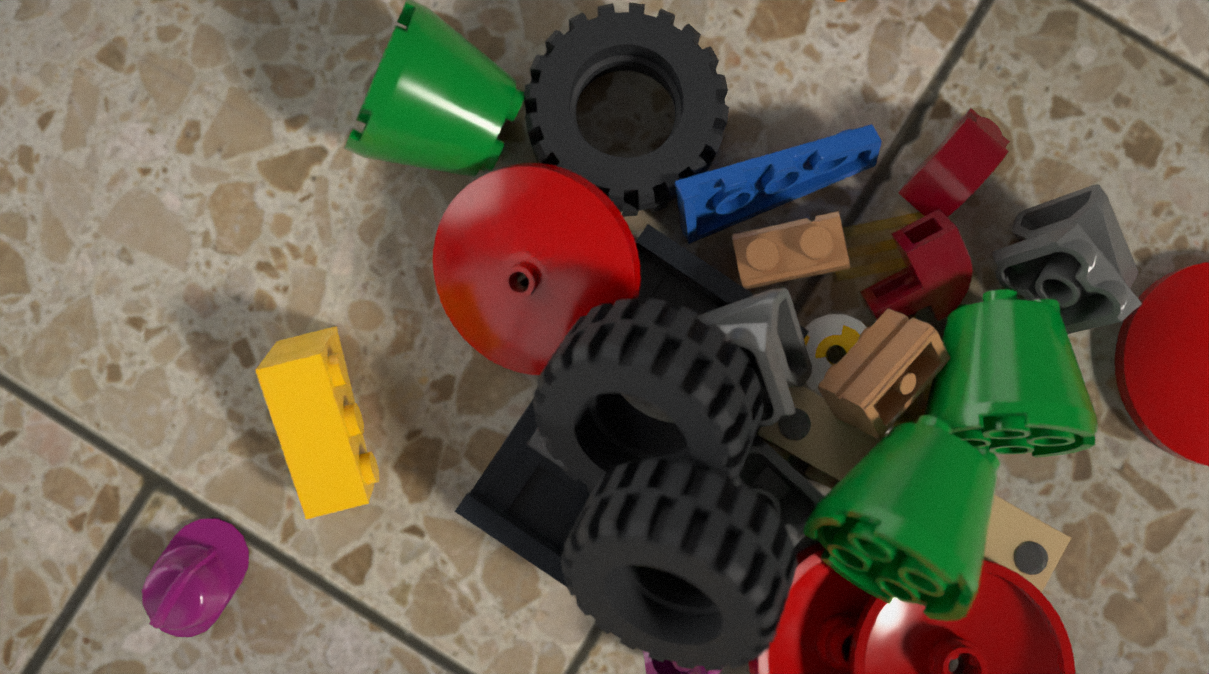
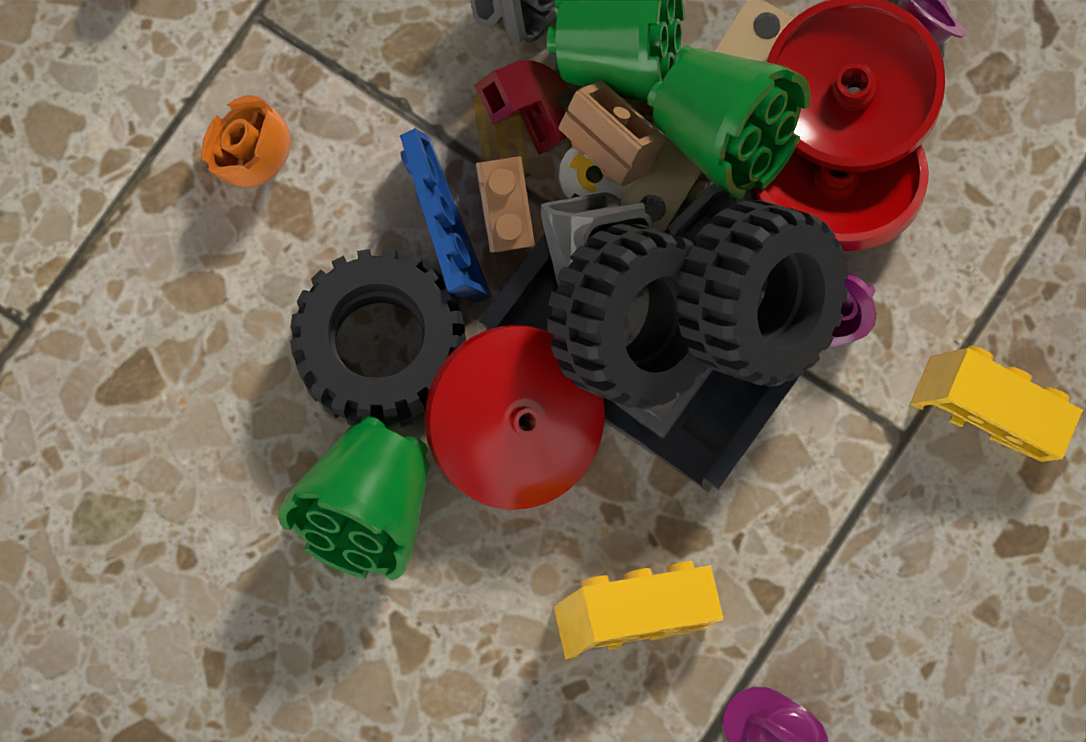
camera: 85 degrees left, 10 degrees down
(956, 166) = (437, 68): dark red brick -> none

